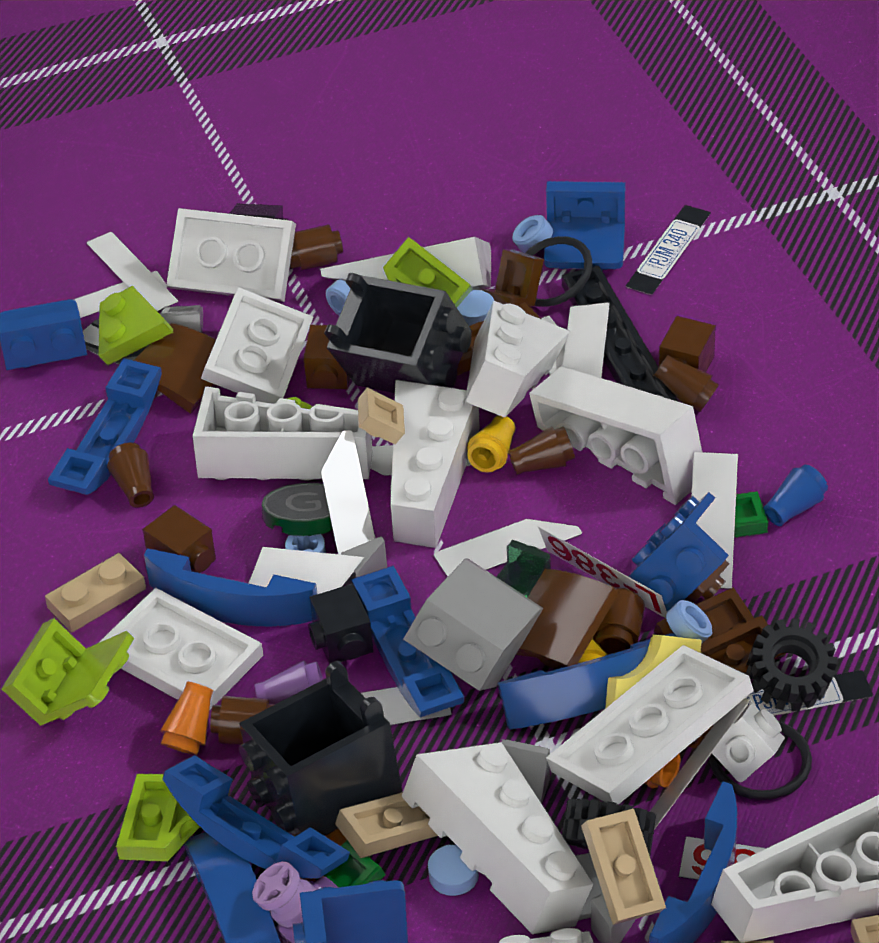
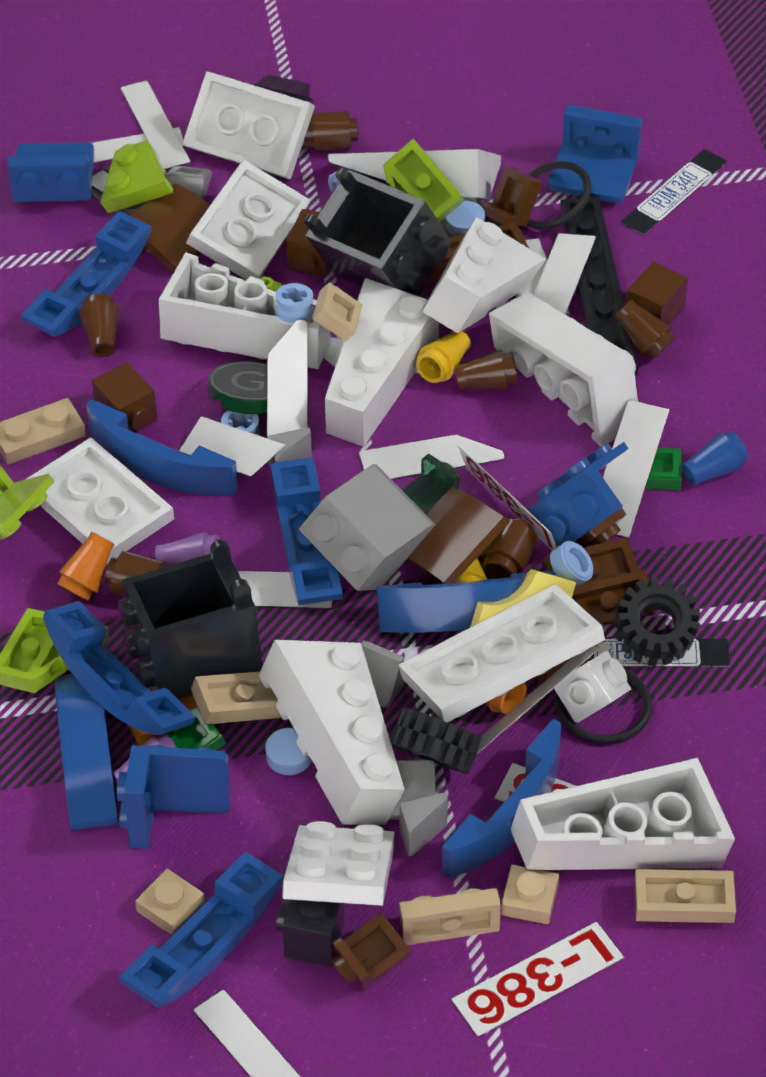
camera: 10 degrees right, 5 degrees up
(280, 891) = (117, 738): lavender wheel -> none
(334, 415) = (294, 302): none -> light blue bush
(340, 624) = (249, 504): black brick -> none
(531, 231) = (544, 151): light blue tile -> none
(623, 866) = (432, 779): tan plate -> none

